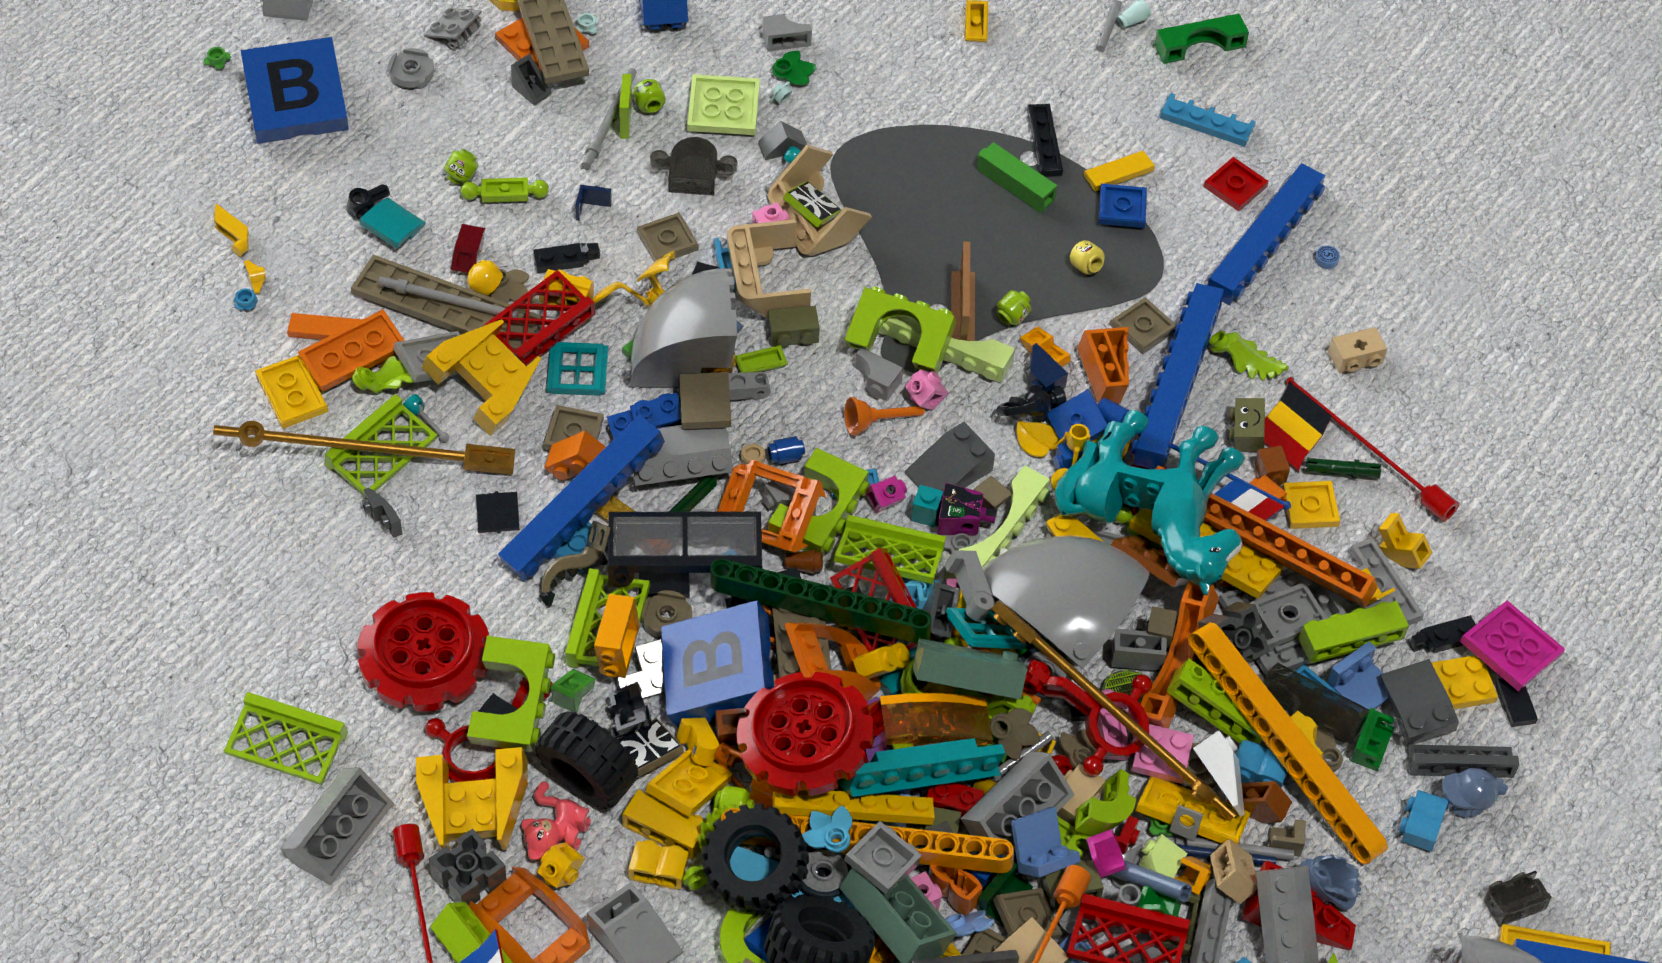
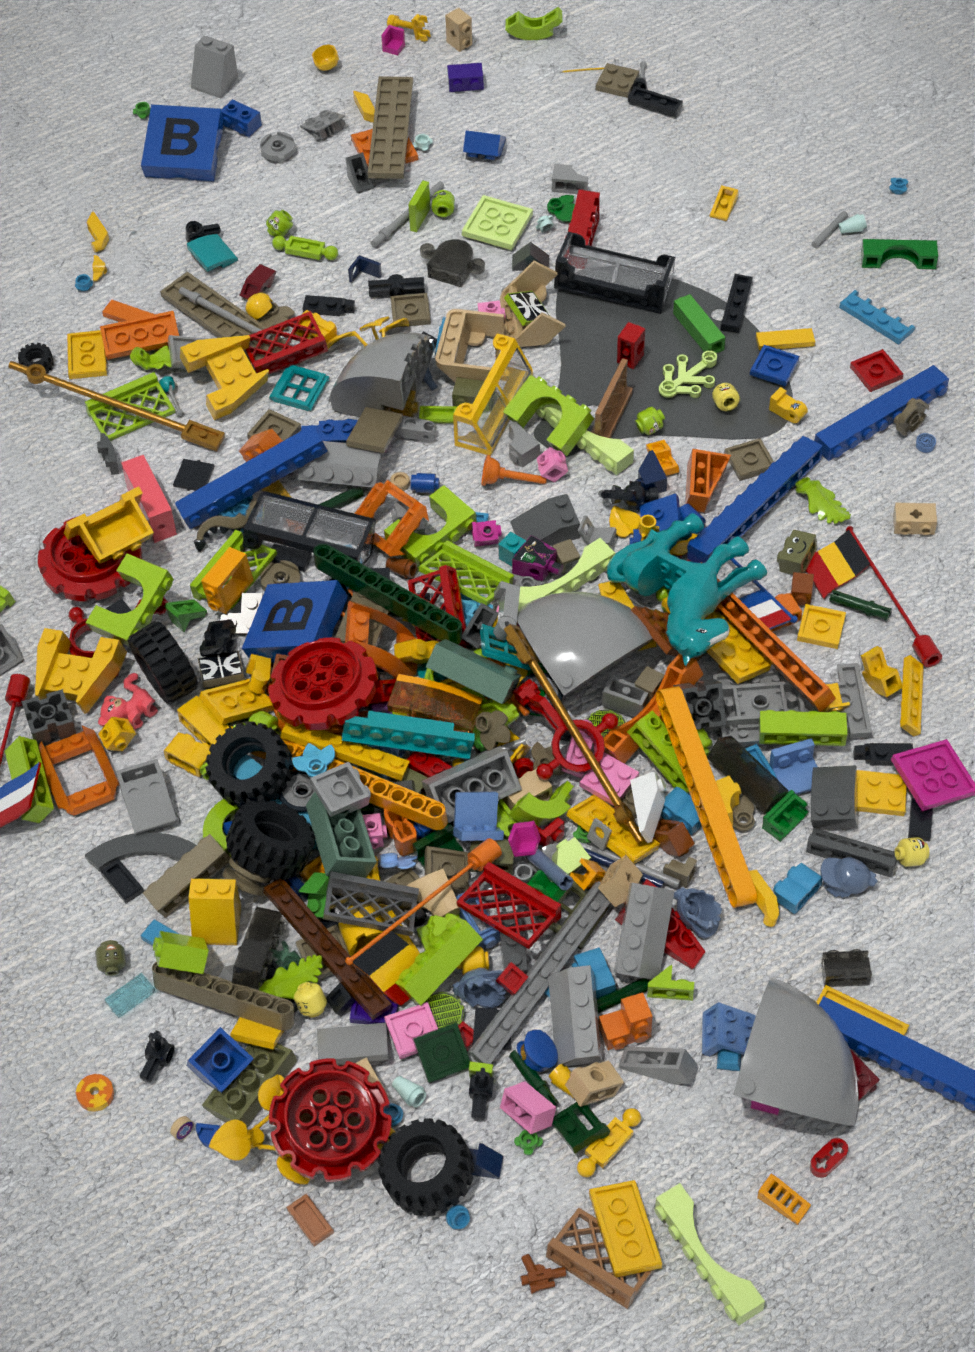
camera: 25 degrees right, 0 degrees up
(227, 403) = (36, 351): none -> black tyre
(351, 41) = (241, 118): none -> blue brick
(453, 607) = (113, 528): none -> yellow windscreen
(464, 557) = (153, 502): none -> coral brick
(639, 212) = (396, 285): none -> black piece
(823, 359) = (483, 422): none -> windscreen
(830, 92) = (586, 215): none -> red wedge
(896, 139) = (613, 275): none -> windscreen
(954, 221) = (631, 344): none -> red brick
(1013, 462) = (606, 534): none -> light grey bracket
(1017, 261) = (670, 388): none -> yellowish green plant
(1160, 252) = (787, 407): none -> yellow leg
(1305, 232) = (911, 416): none -> dark tan plate
(1398, 845) = (765, 899): none -> yellow piece
(1447, 562) = (911, 696): none -> yellow plate
(1527, 741) = (912, 852): none -> light yellow head

